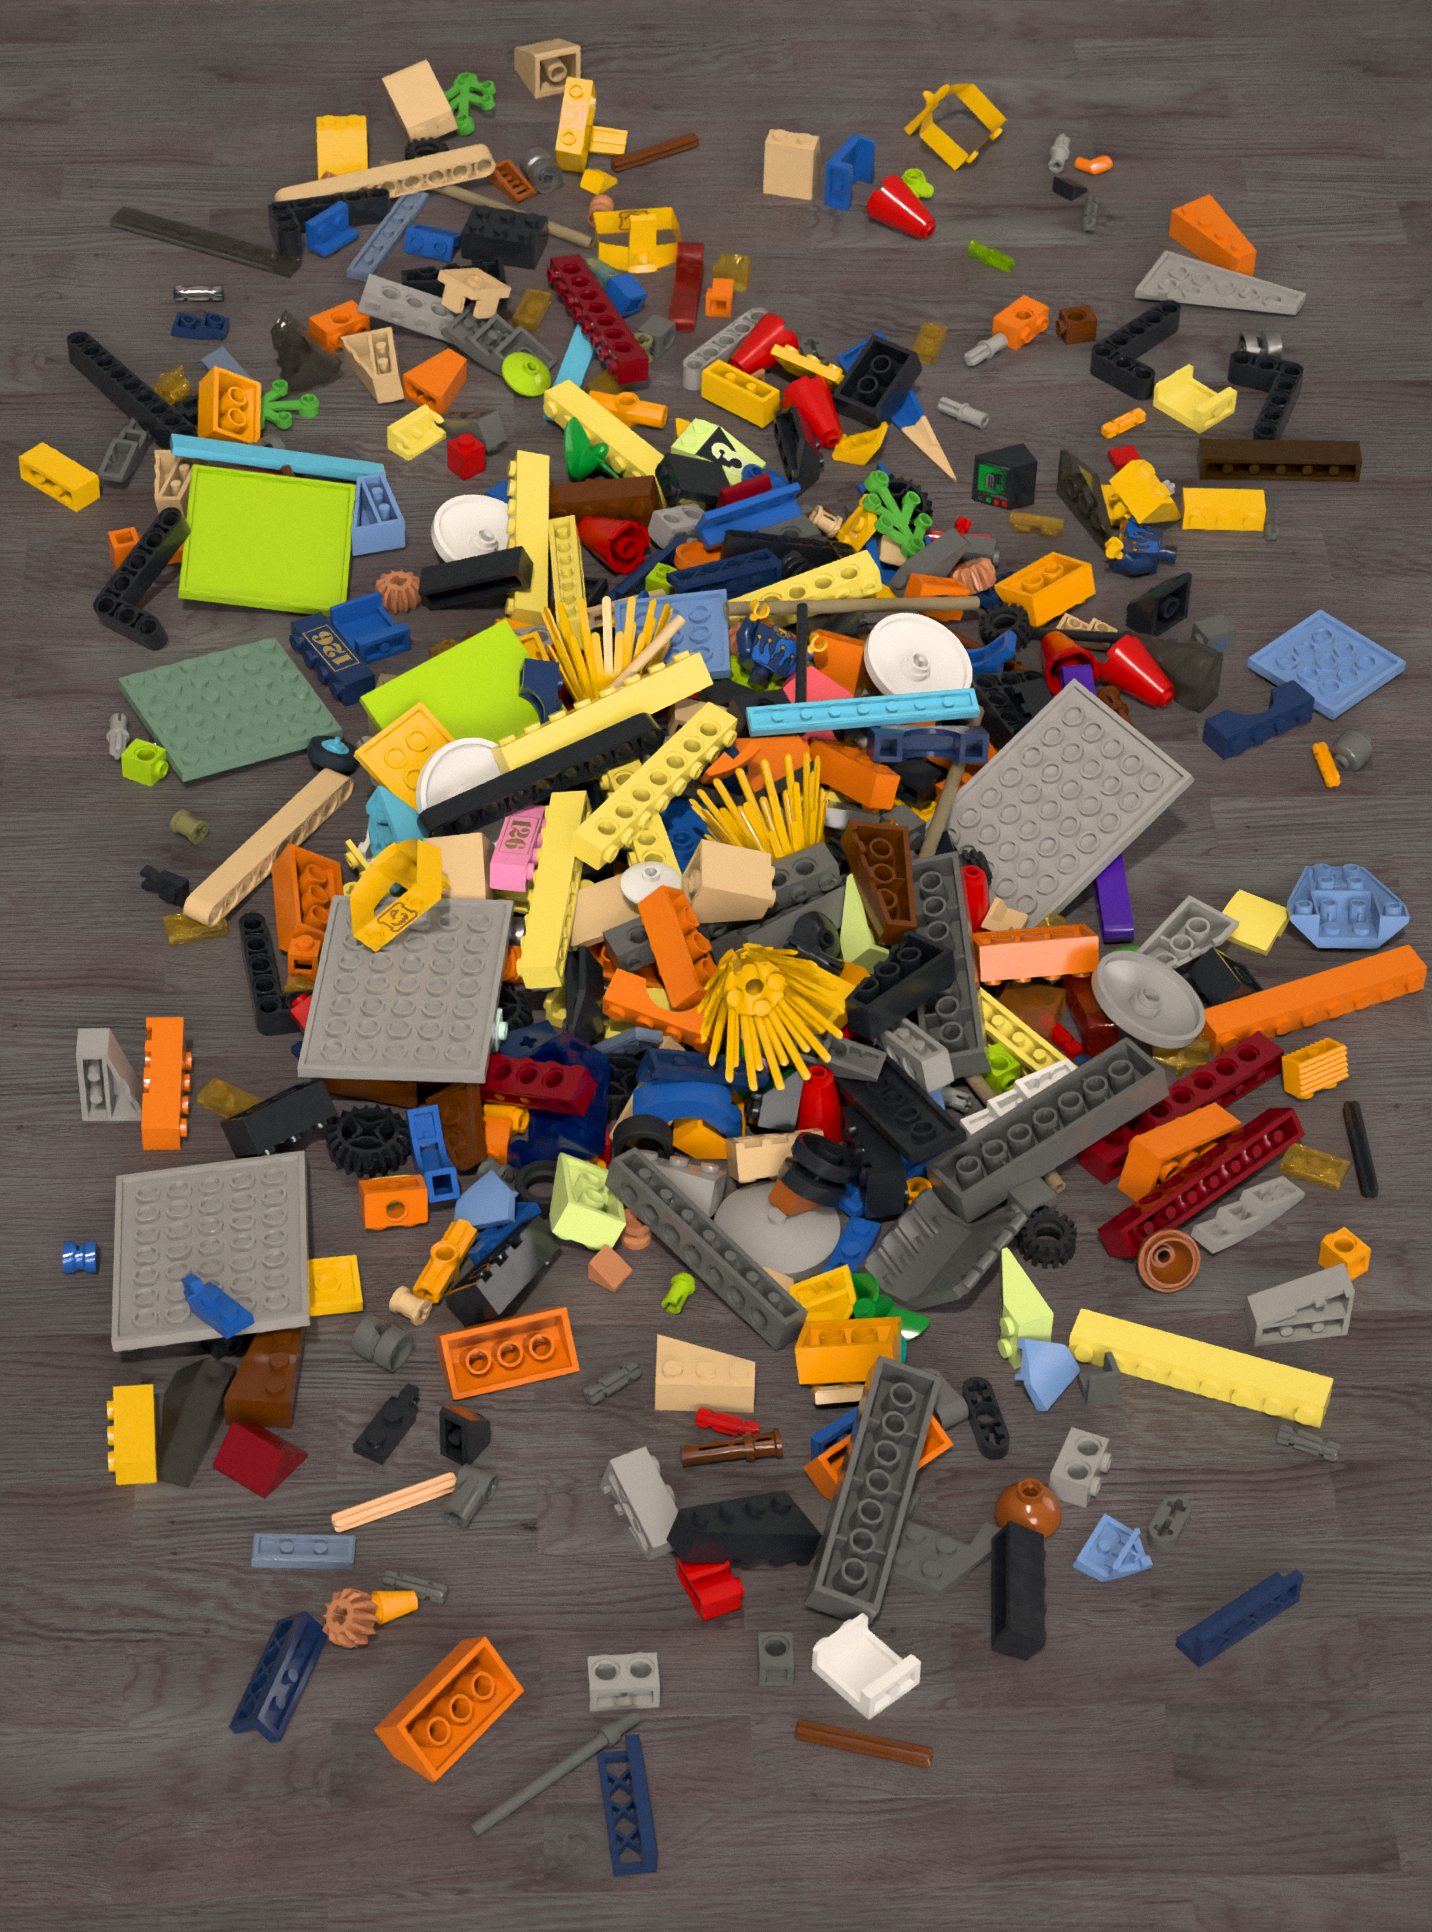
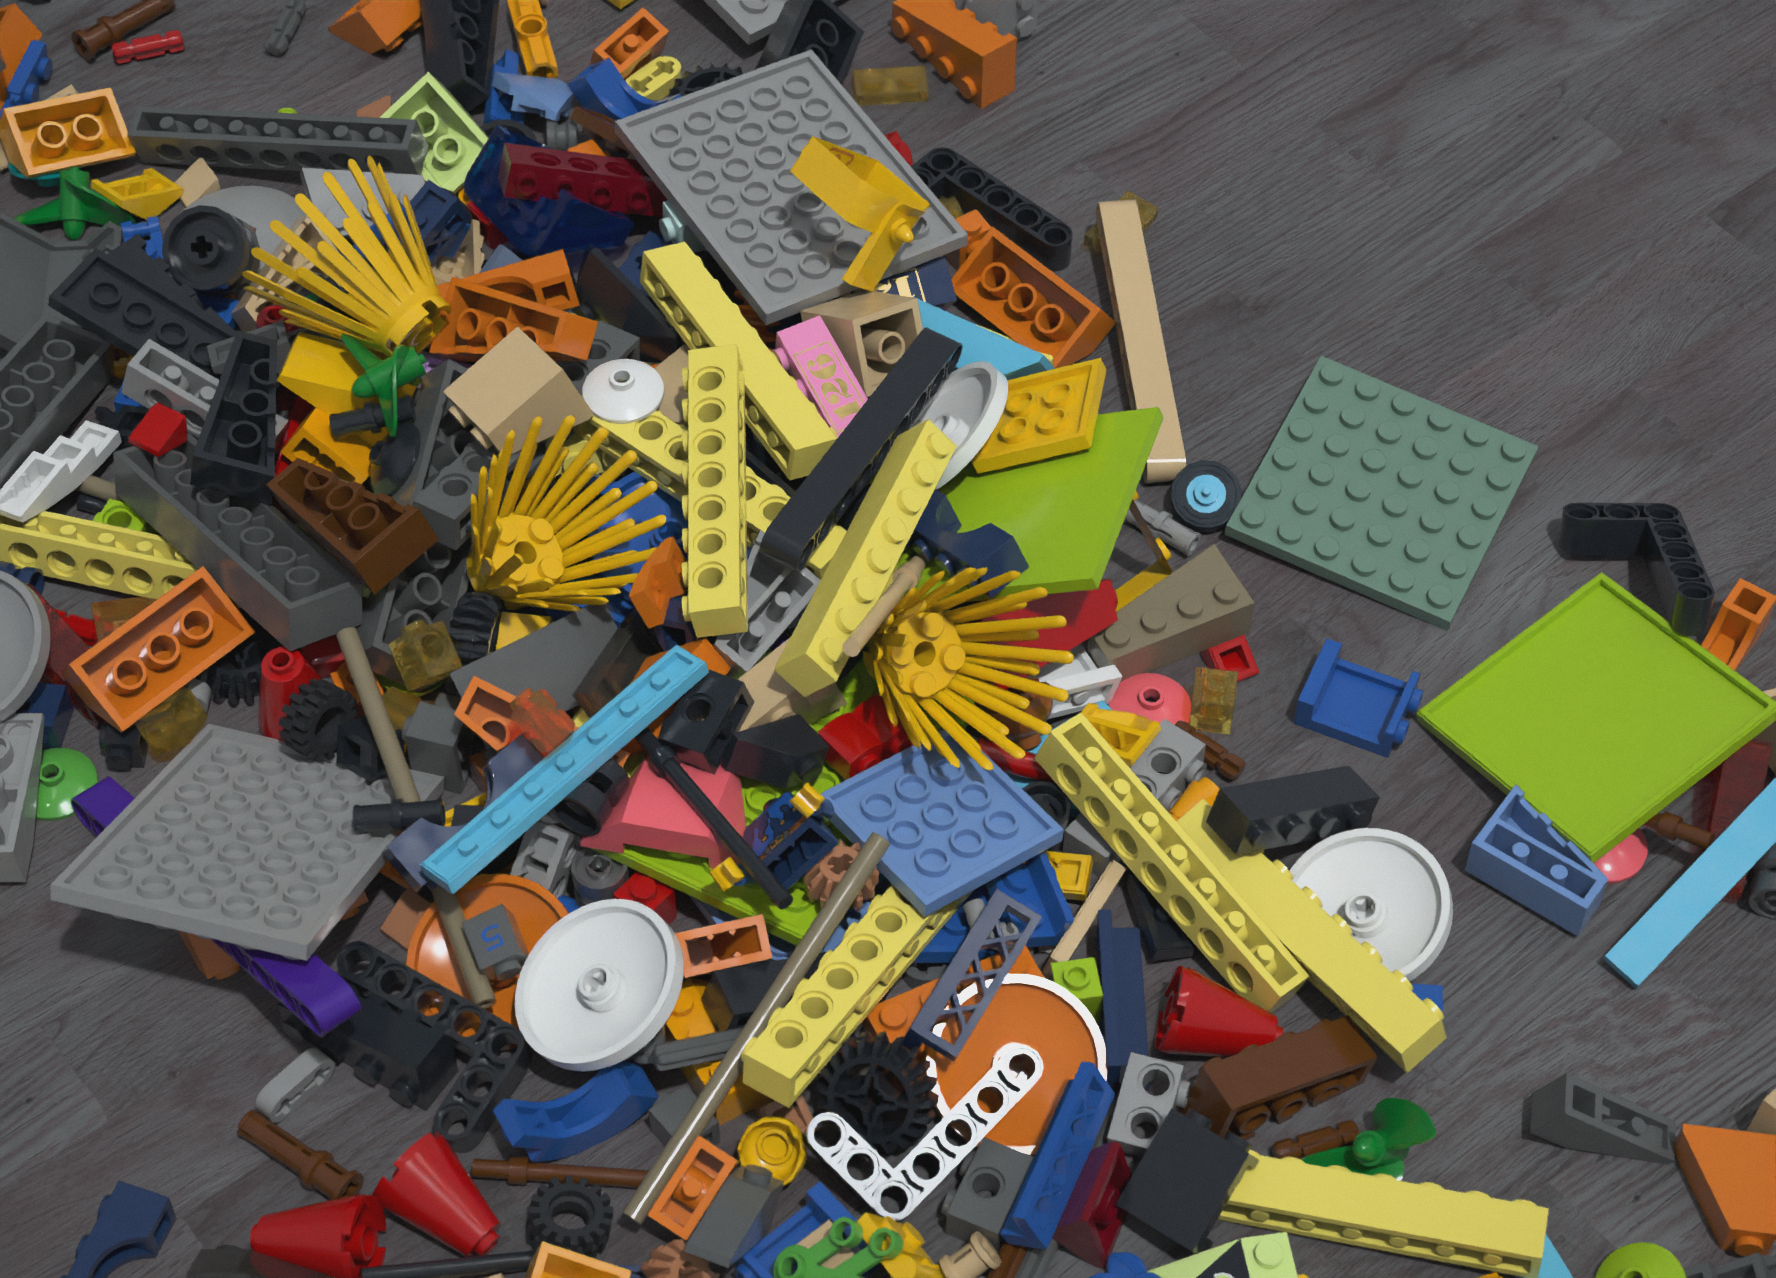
camera: 145 degrees right, 10 degrees up
(118, 735) = (1455, 388): light grey axle -> none
(144, 762) = (1389, 362): lime brick -> none
(170, 886) = (1192, 245): black plate -> none
(188, 826) = (1253, 325): olive bush -> none
(331, 658) = (1366, 628): dark blue brick -> none
(399, 591) = (1390, 774): nougat gear -> none
(415, 433) = (1657, 1065): light yellow hinge -> none
(466, 456) = (1544, 1055): red brick -> none
(702, 1377) = (196, 55): tan wedge -> none
(794, 934) = (385, 376): none -> green piece
(860, 728) = (539, 719): none -> clear orange brick
(953, 1043) = (160, 430): none -> red slope
(964, 773) = (397, 815): none -> black pin
(1003, 918) = (235, 711): tan panel -> none

